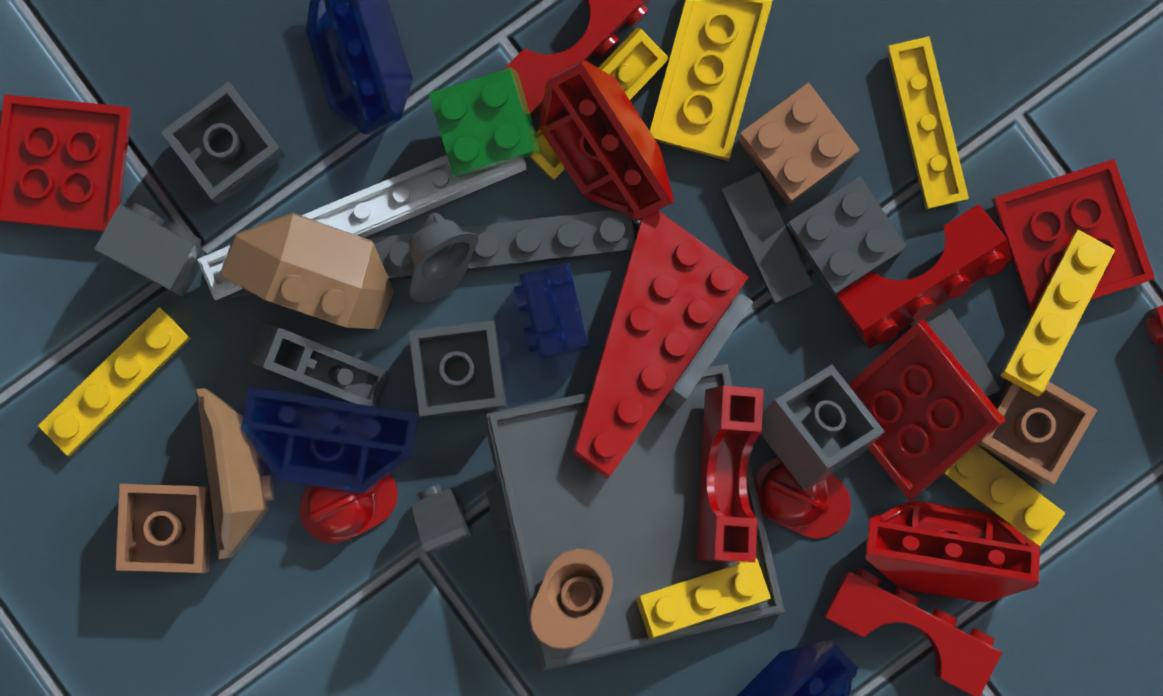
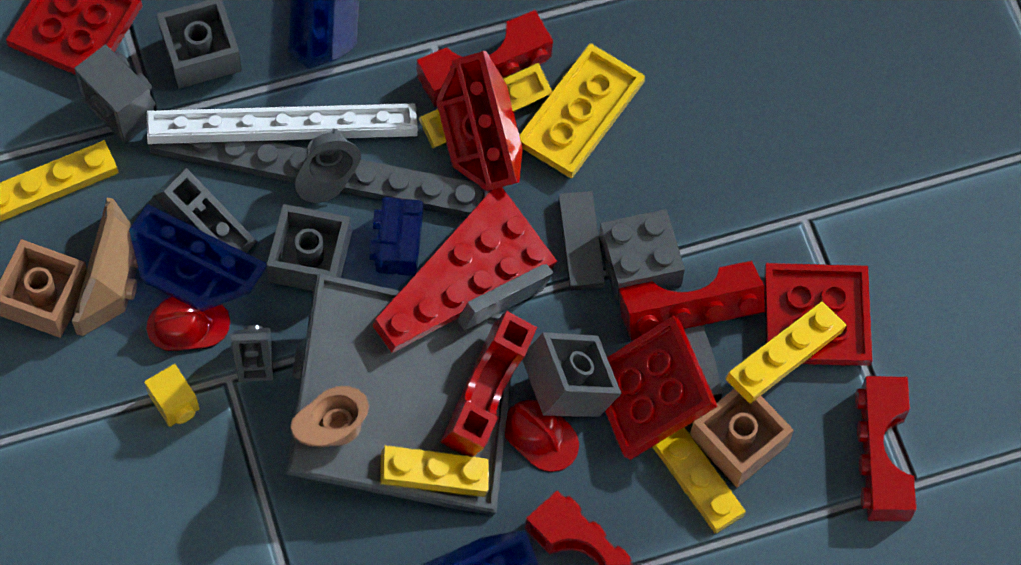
camera: 10 degrees right, 20 degrees down
(312, 270) = (231, 142): medium nougat wedge -> none
(368, 603) = (172, 396): none -> yellow brick
(484, 122) = (397, 81): green brick -> none
(798, 144) = (628, 178): nougat brick -> none
(927, 123) = (732, 199): yellow plate -> none
(952, 552) = (641, 506): red wedge -> none

